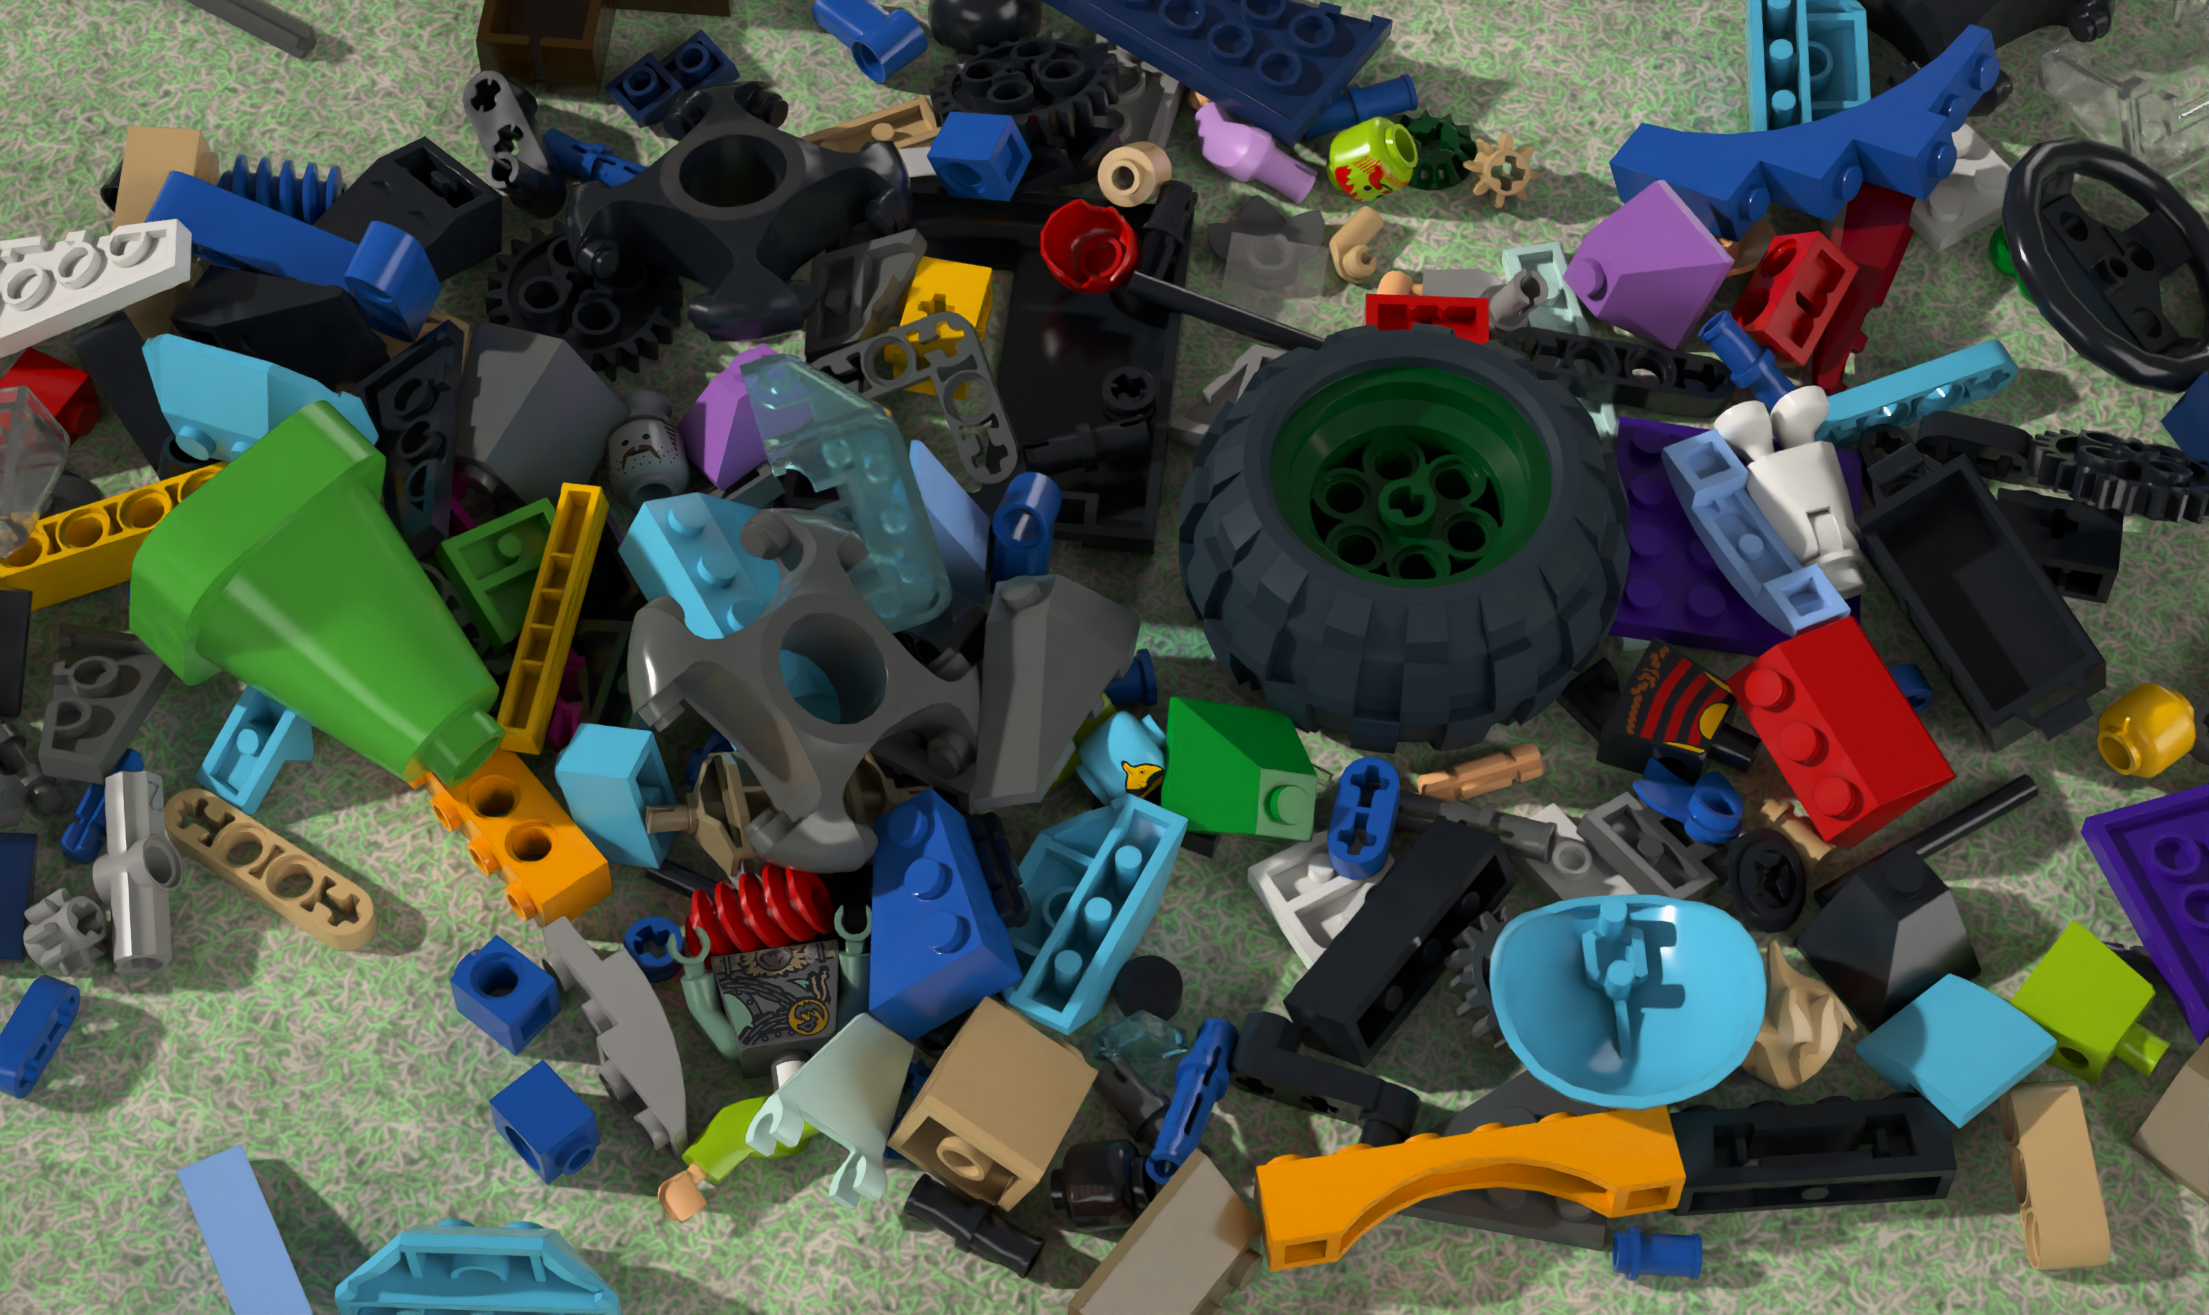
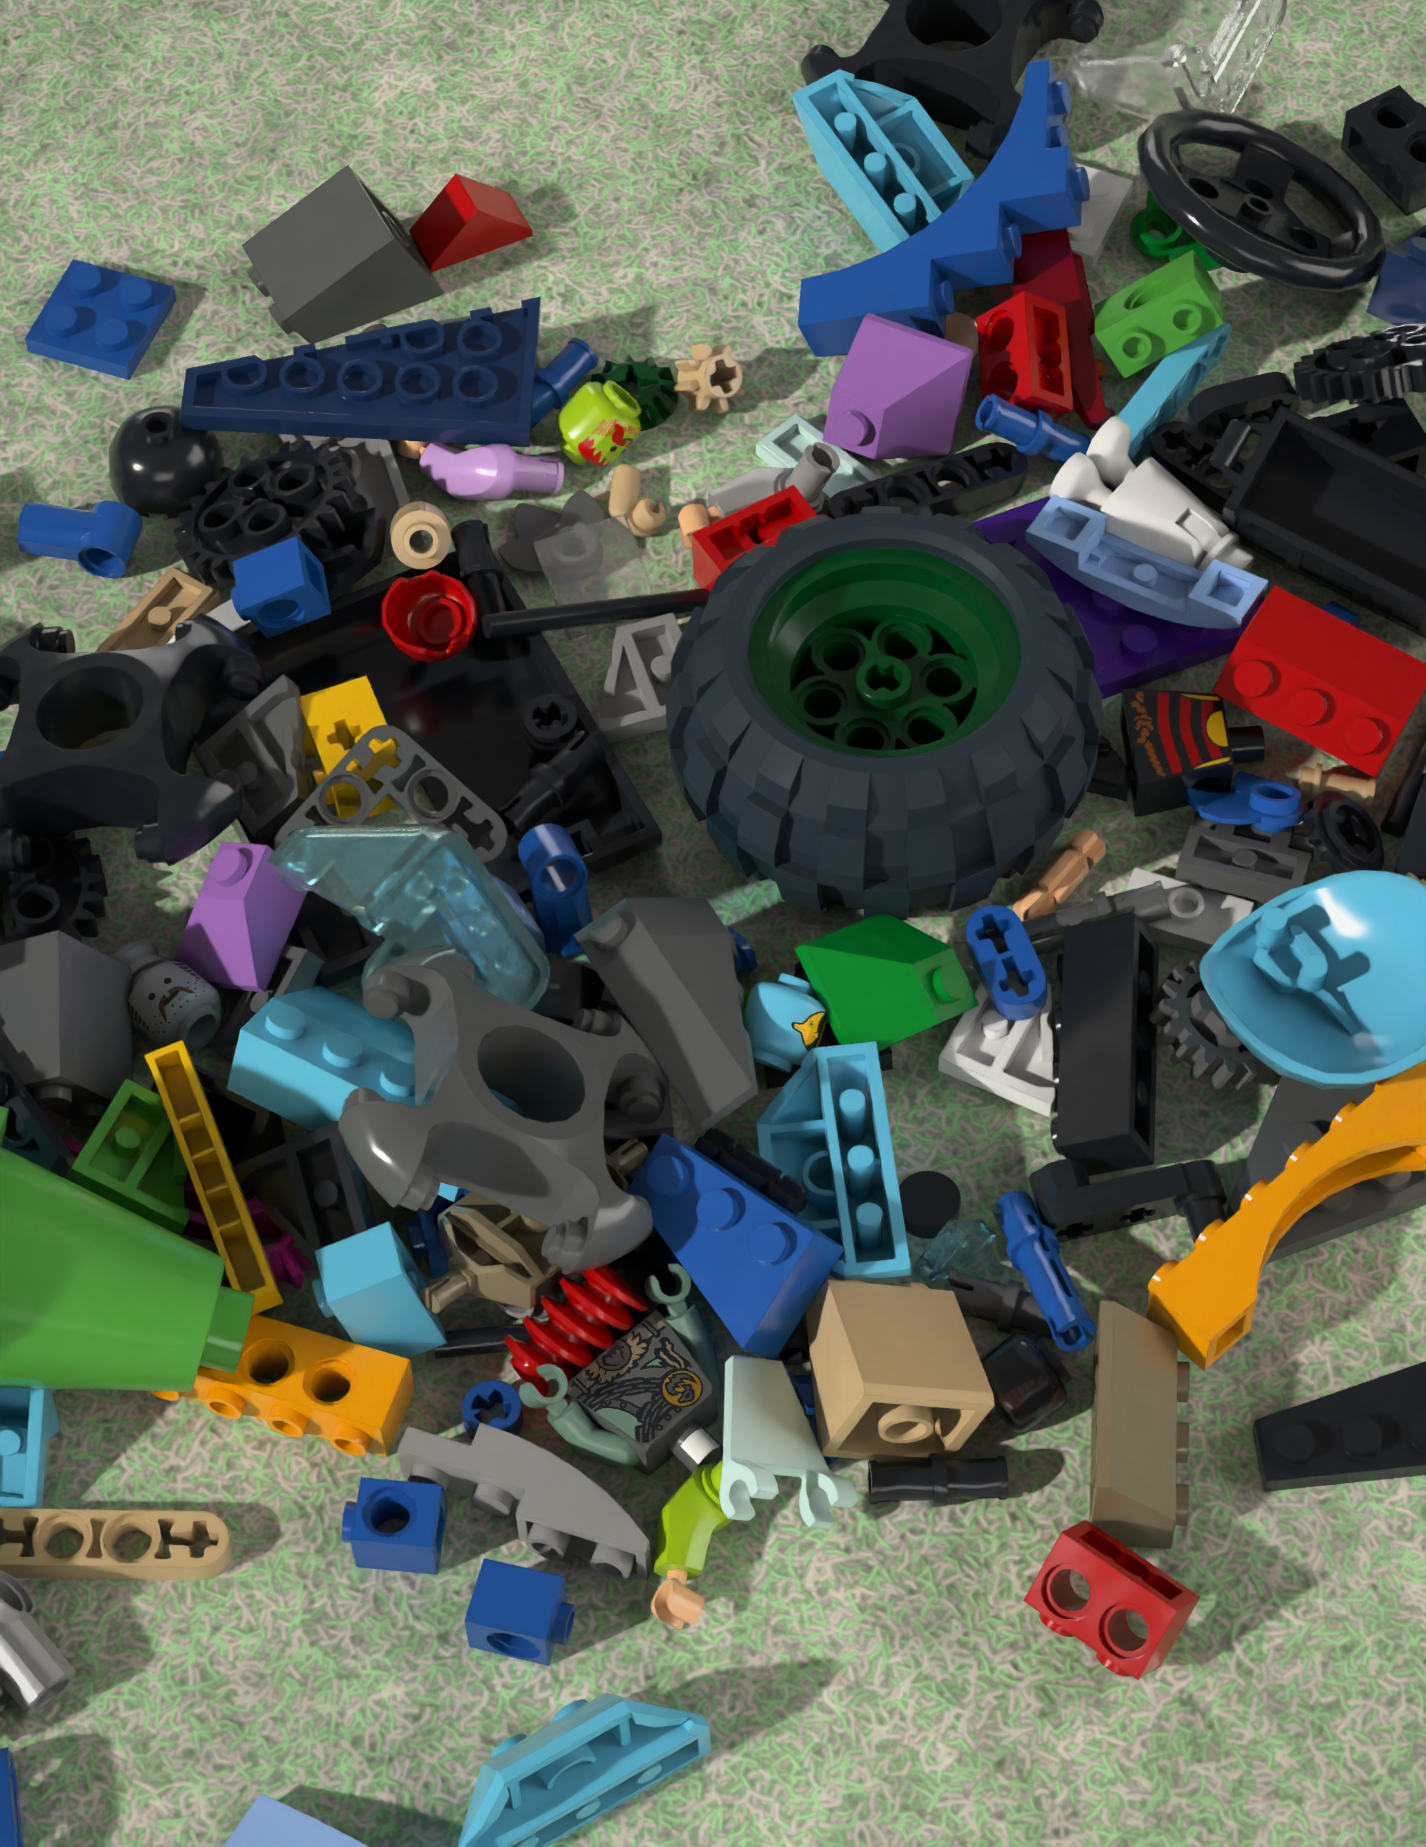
camera: 30 degrees left, 0 degrees up
(1946, 319) = (1158, 314): none -> bright green brick

